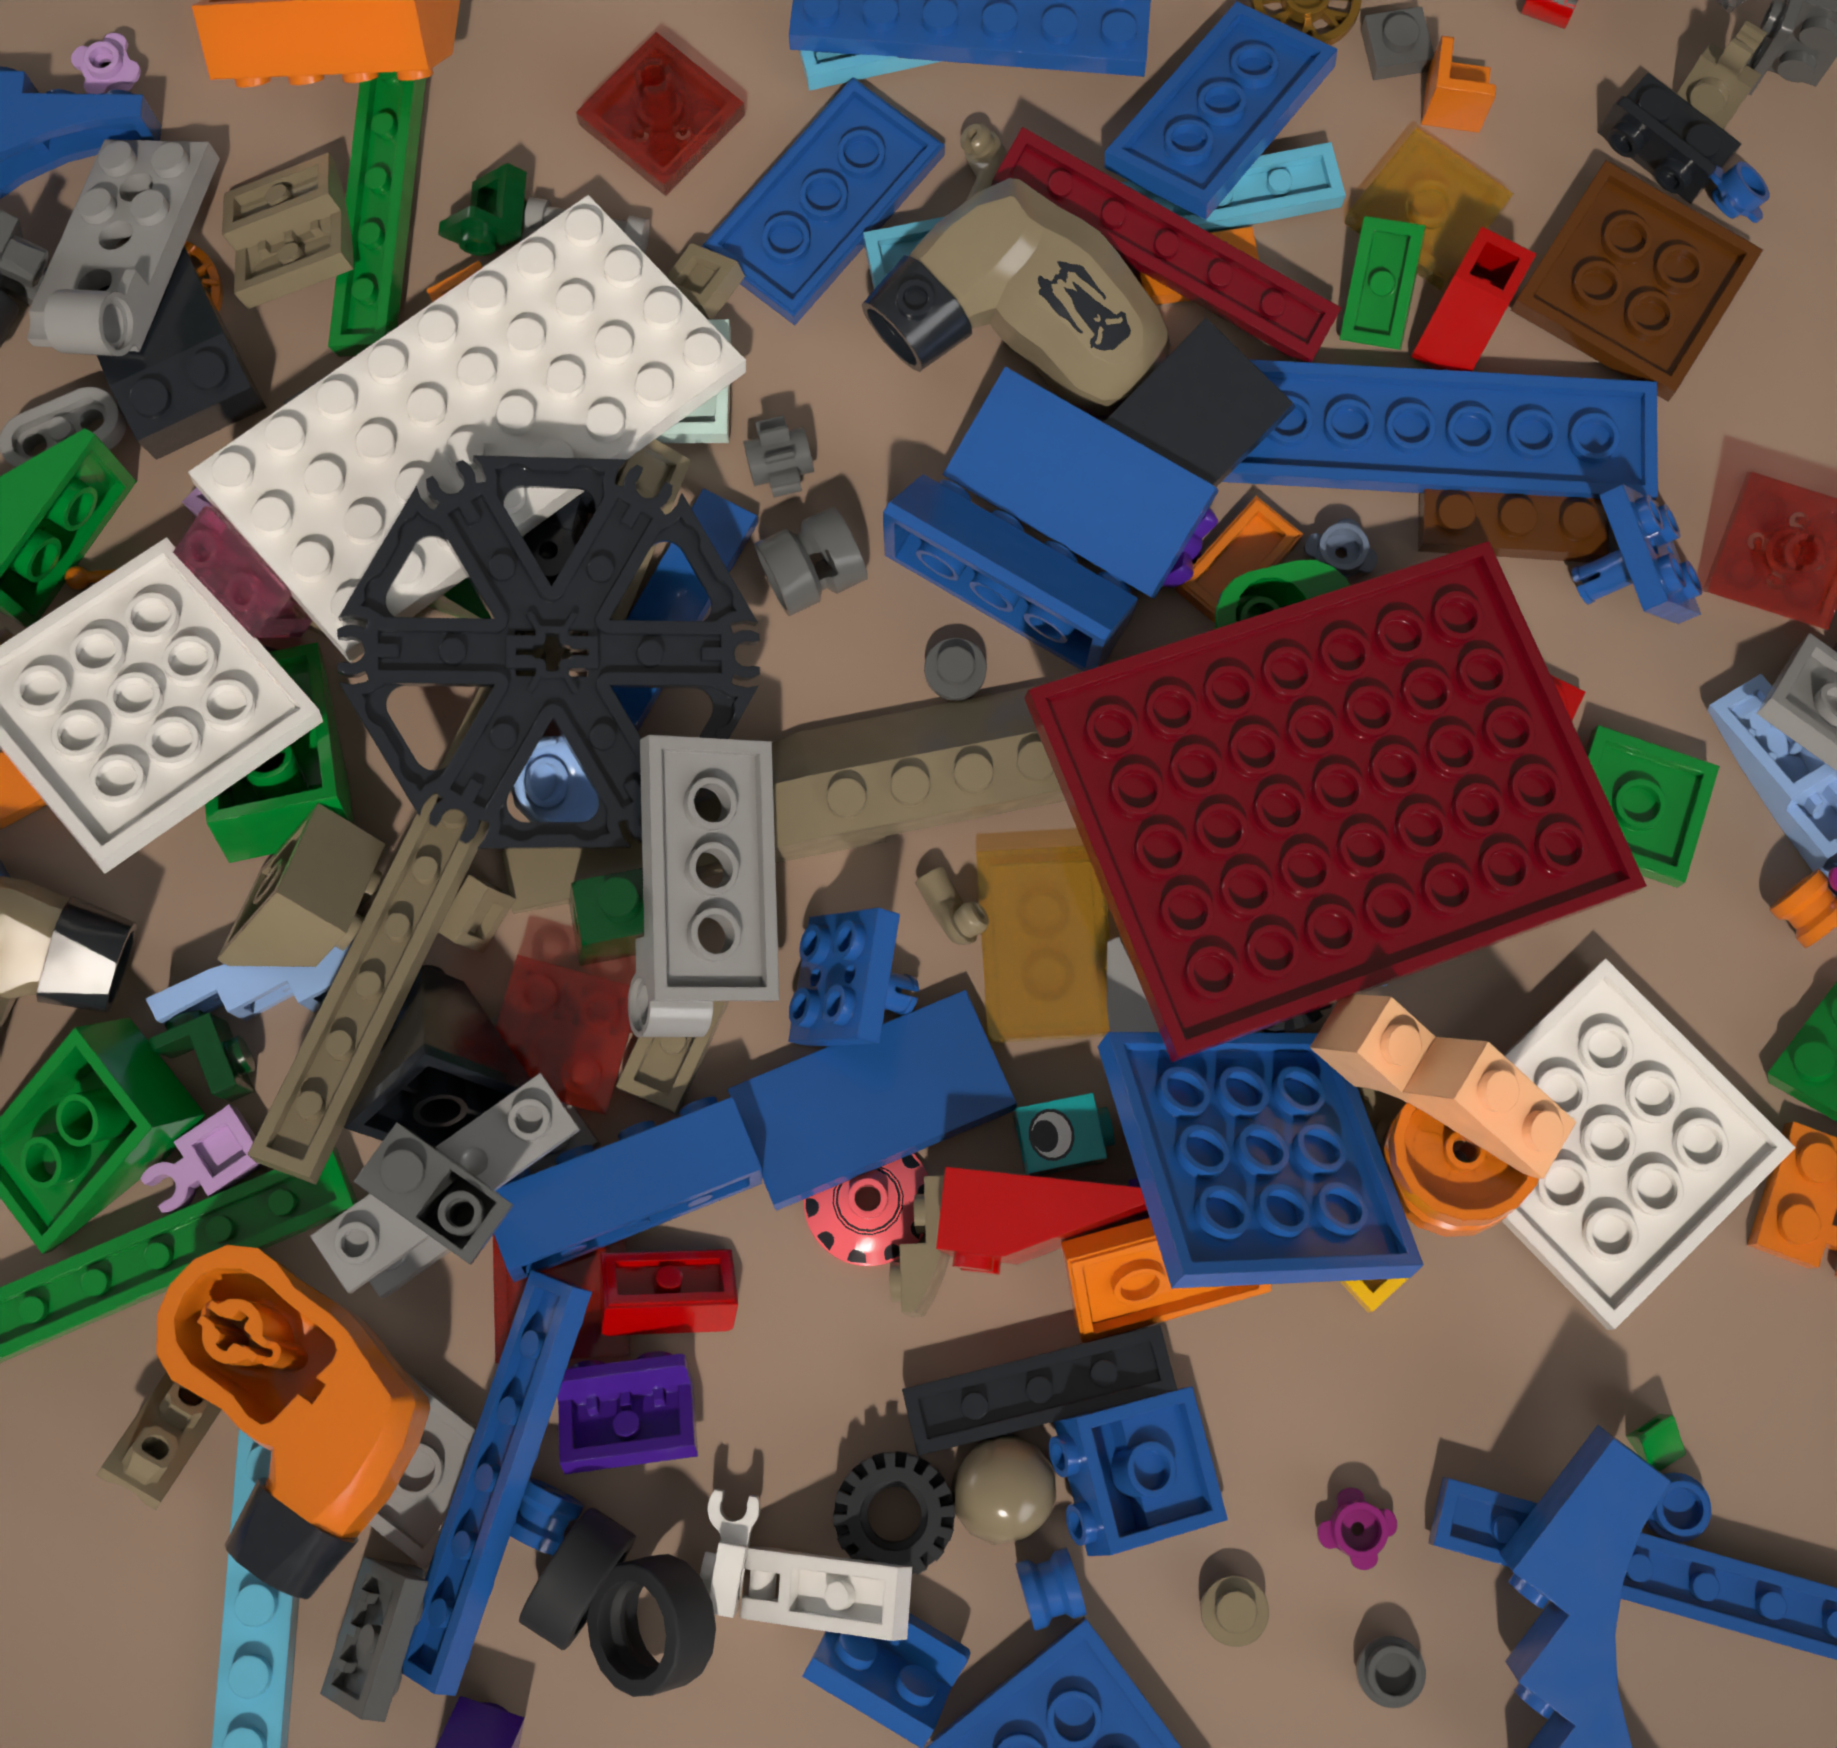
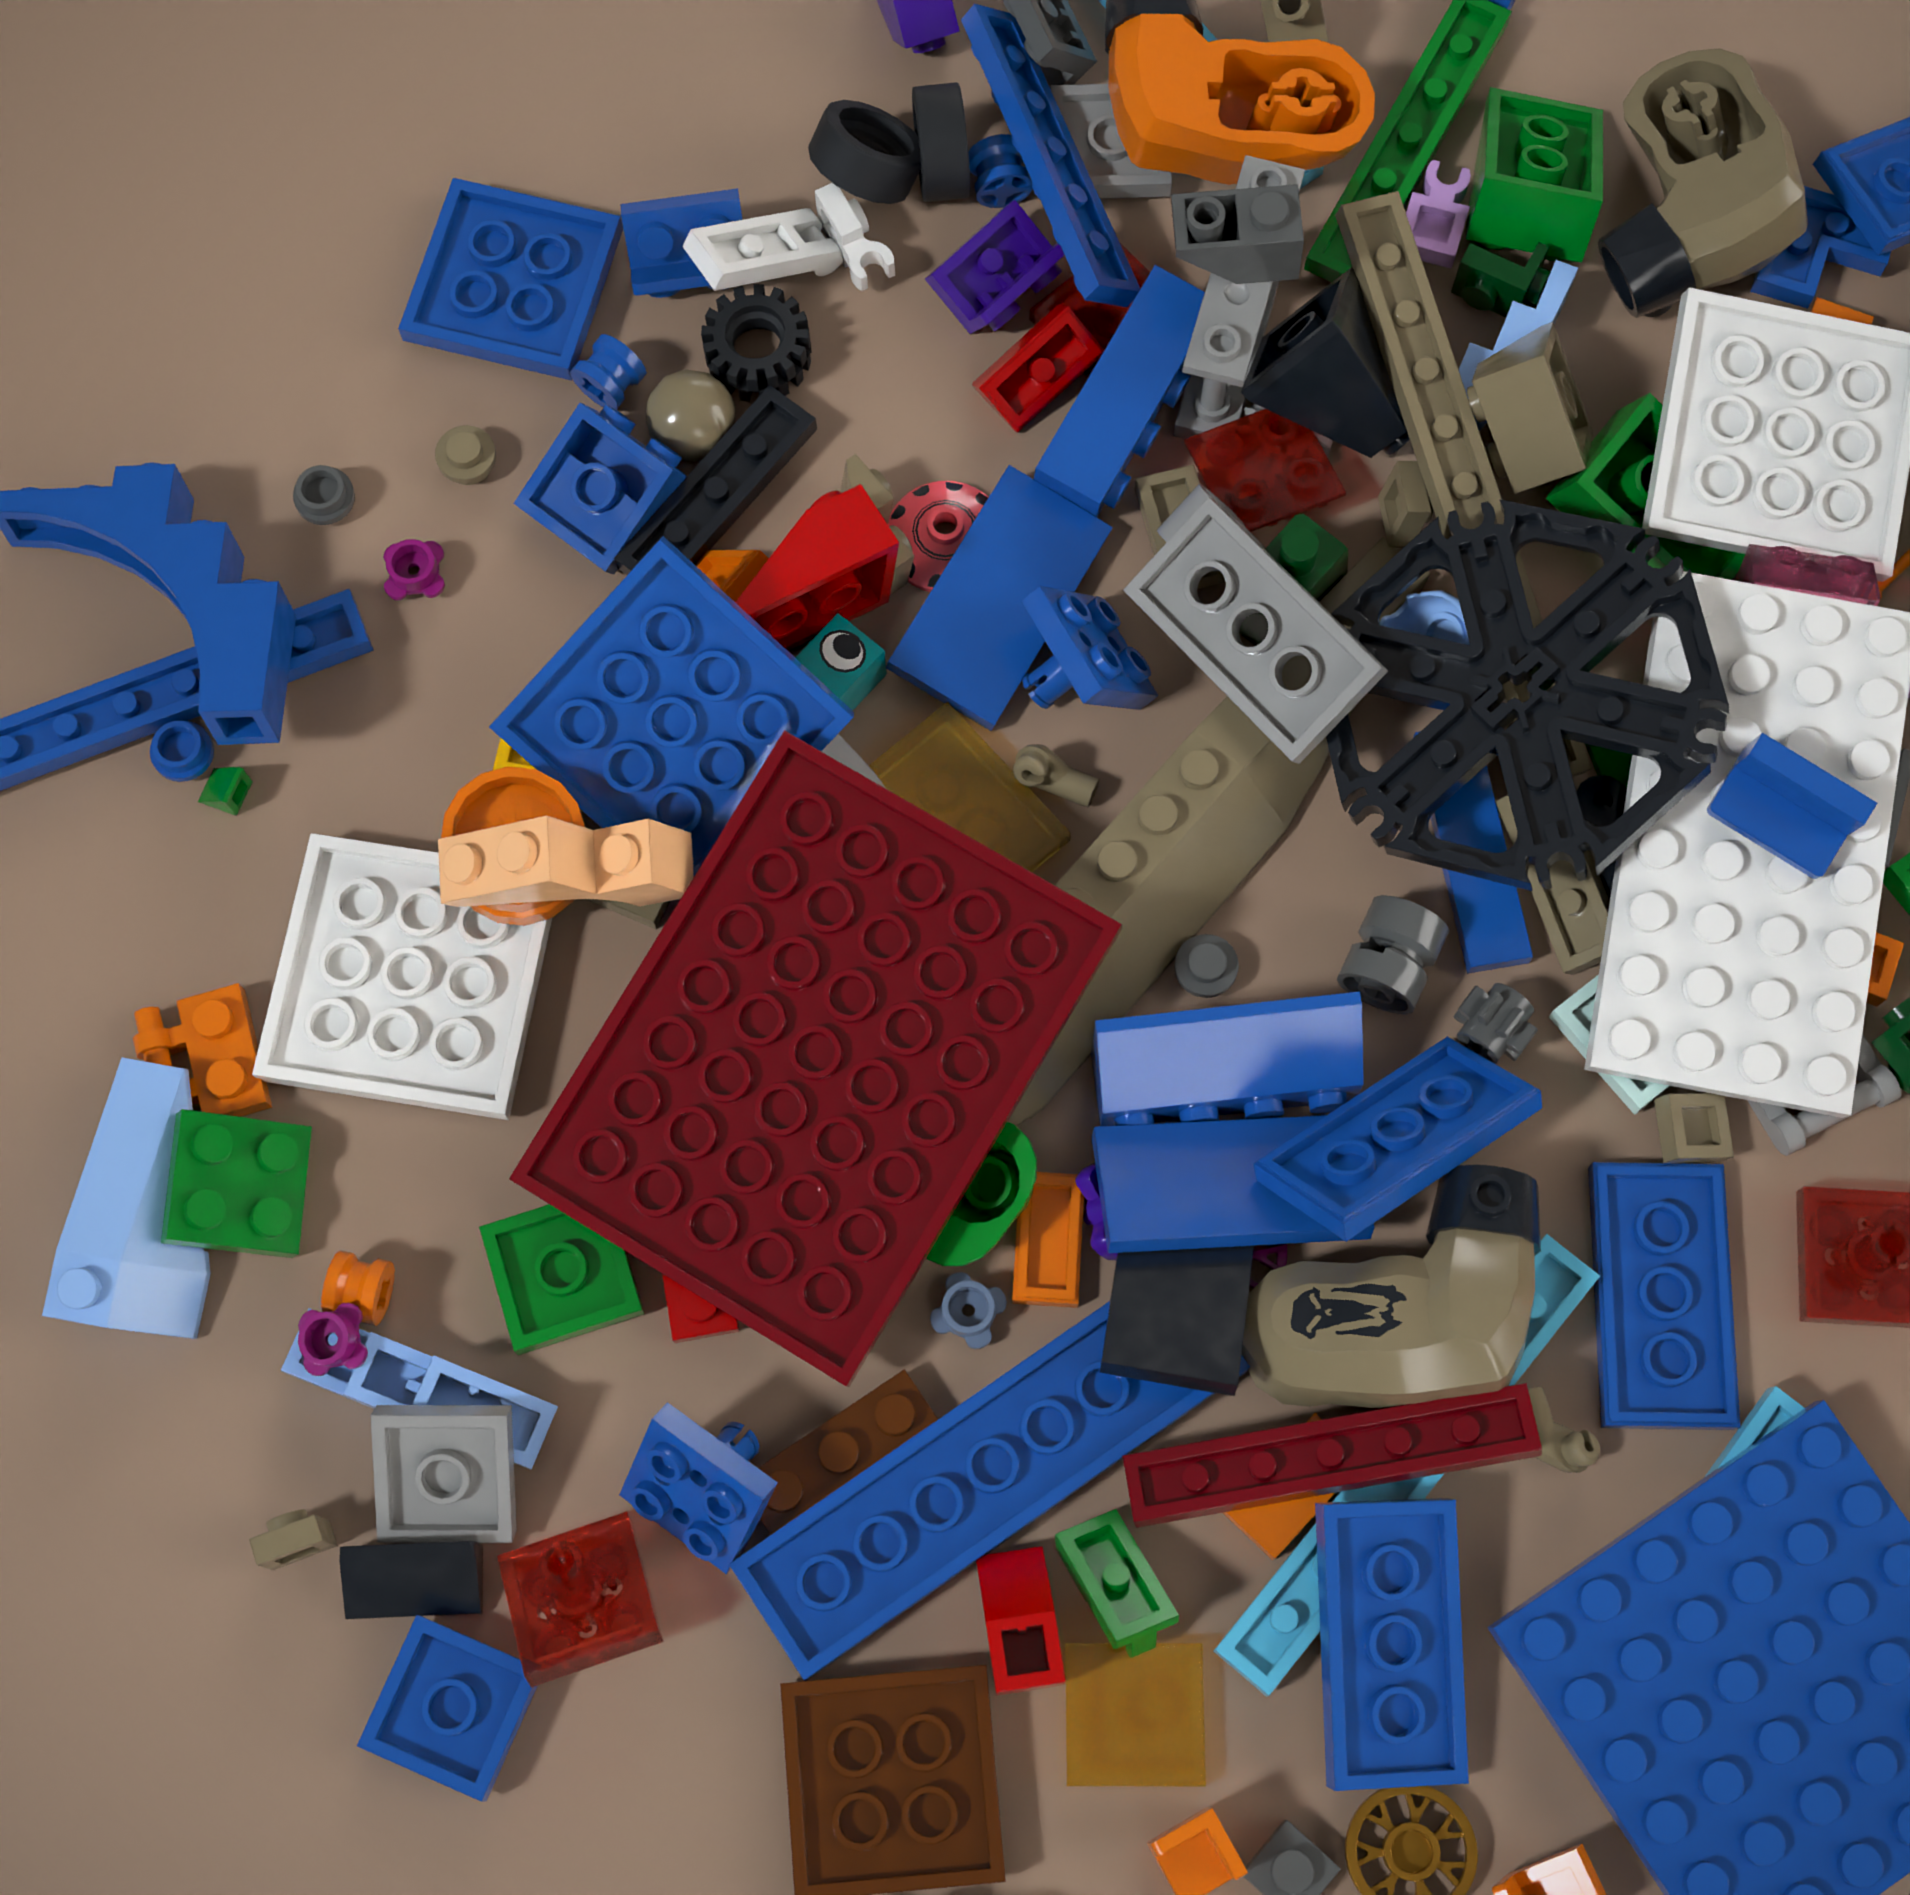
camera: 145 degrees right, 5 degrees down
(437, 402) = (1789, 806): none -> blue panel
(934, 411) = (1397, 1137): none -> blue tile

